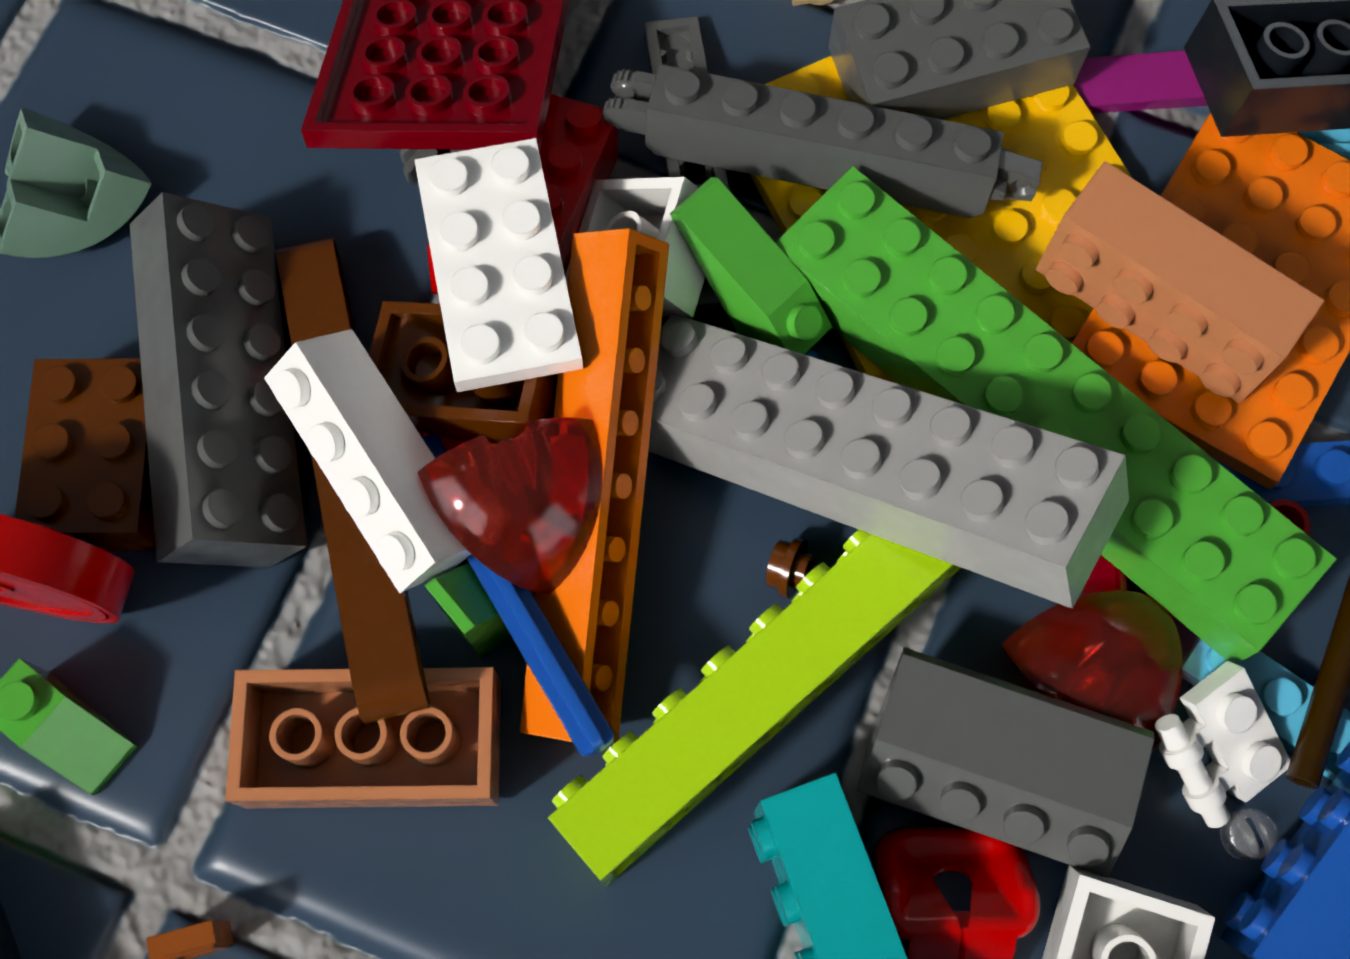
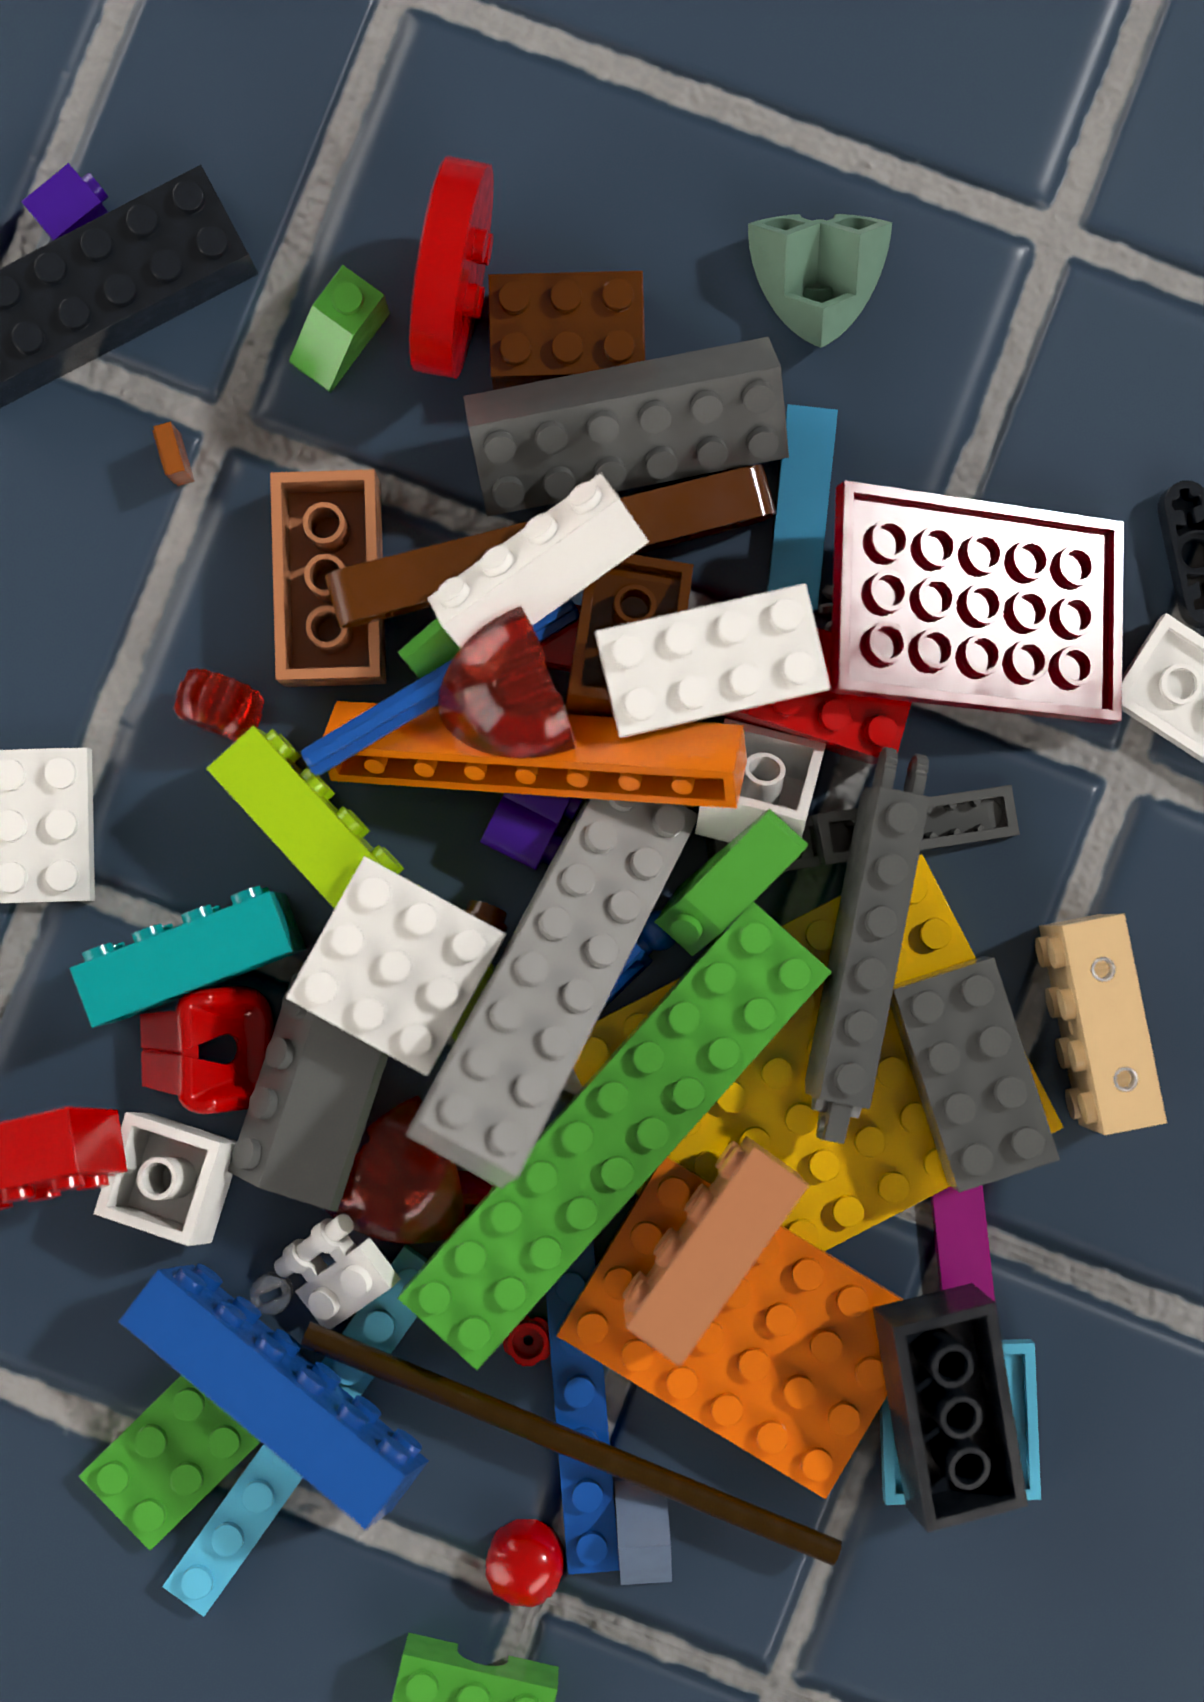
camera: 80 degrees right, 15 degrees up
(352, 218) = (803, 500): none -> dark azure tile
(516, 881) = (218, 703): none -> clear red gear
(681, 512) = (527, 827): none -> dark purple brick
(854, 639) = (396, 966): none -> white plate

